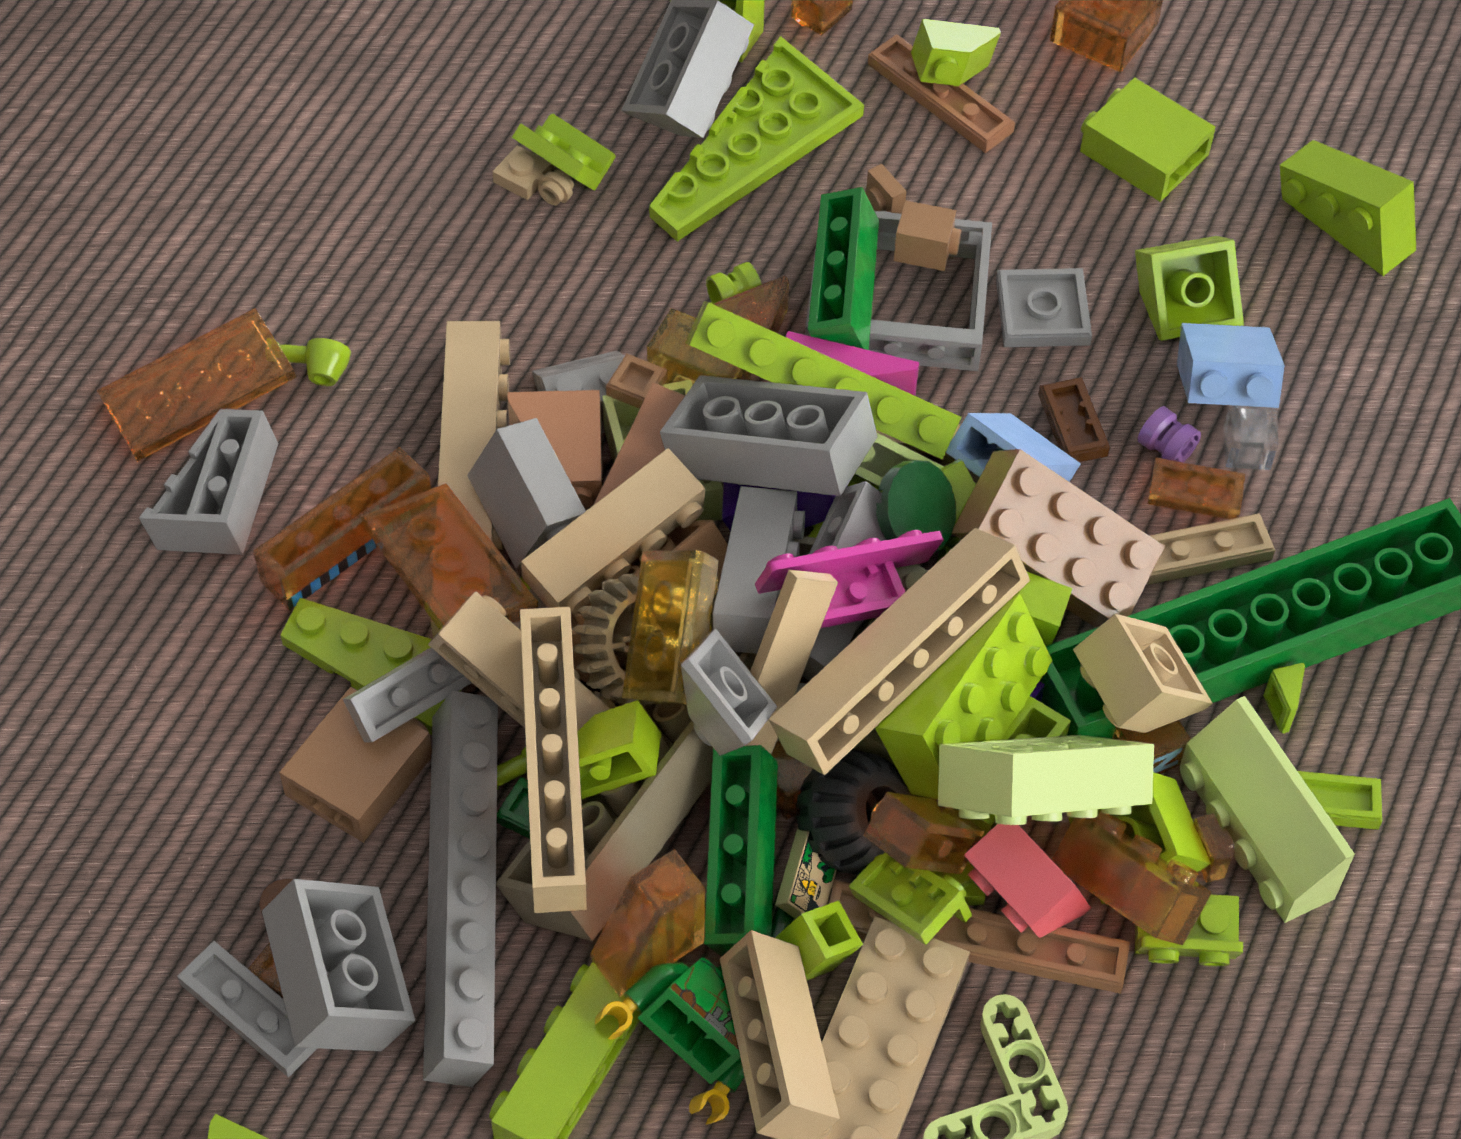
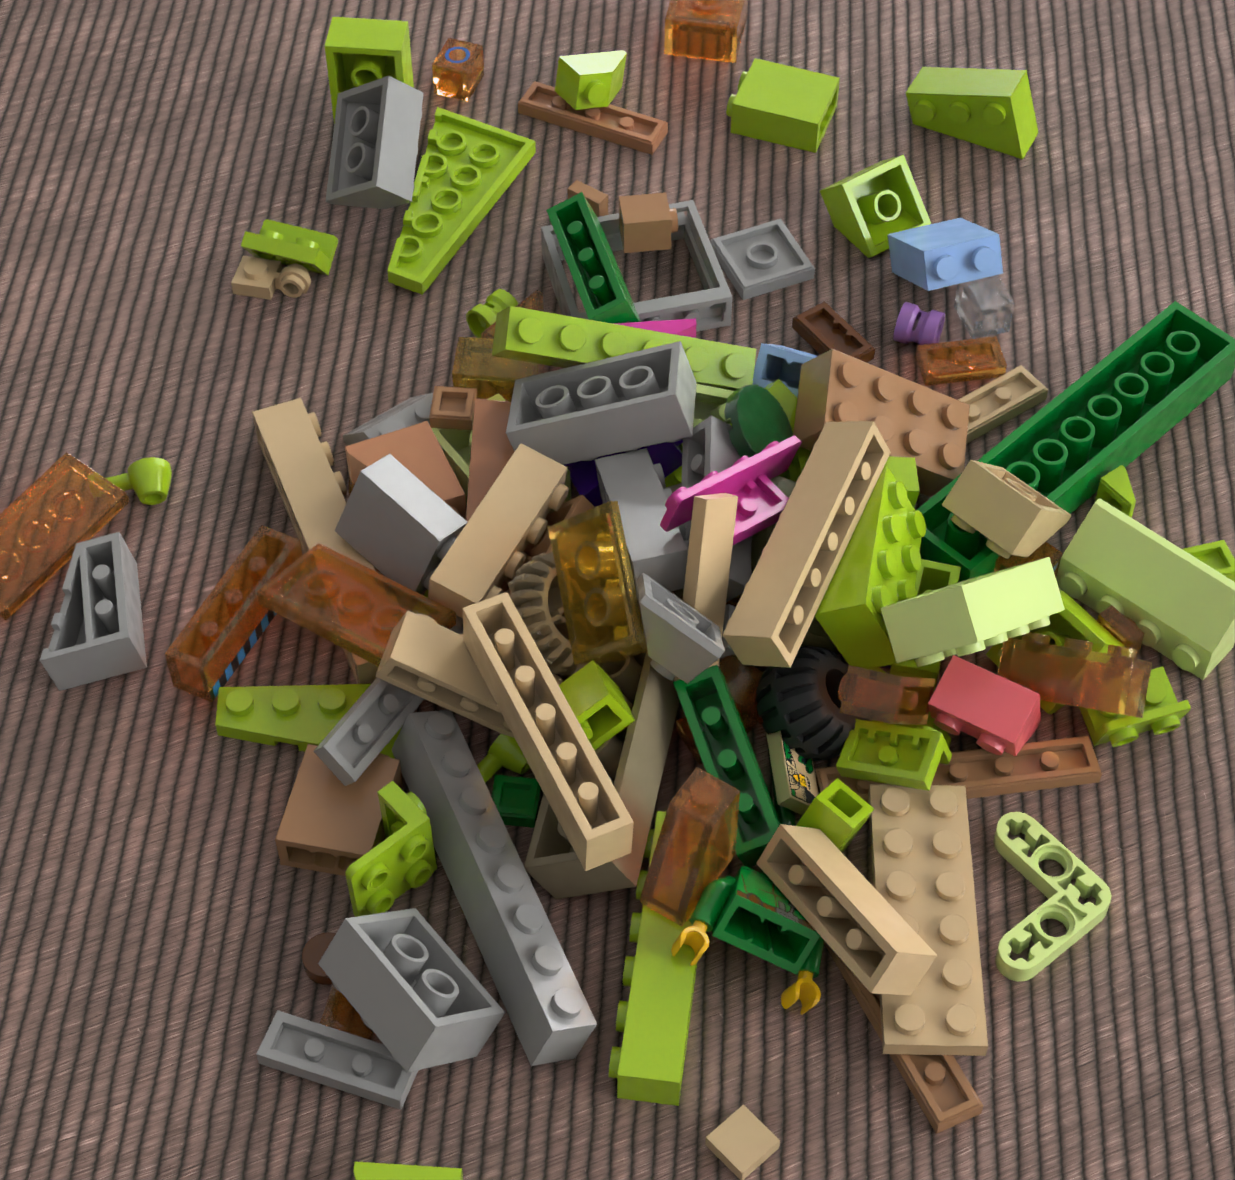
camera: 20 degrees left, 5 degrees down
(380, 836) = (398, 862): none -> lime bracket

